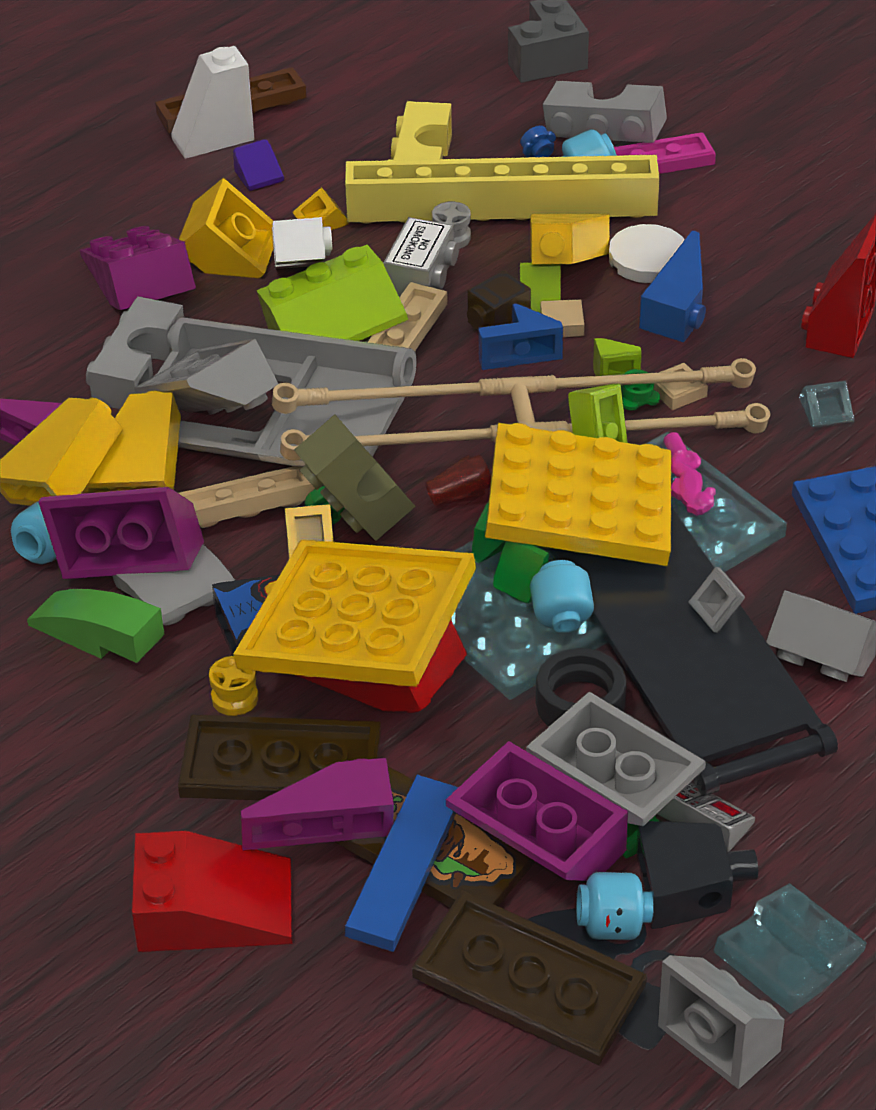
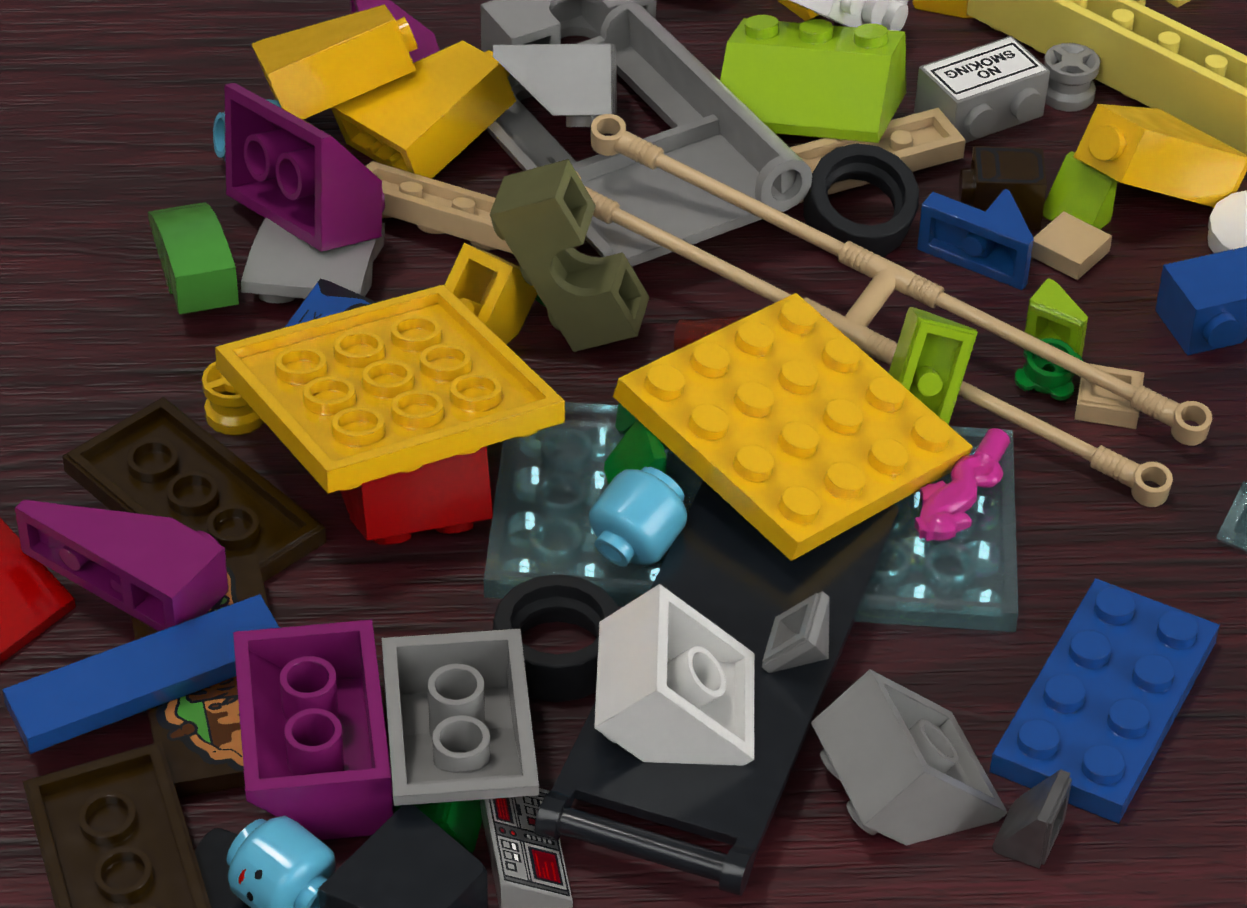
camera: 40 degrees right, 0 degrees up
(453, 339) = (878, 168): none -> black tyre
(694, 668) = (674, 684): none -> white slope

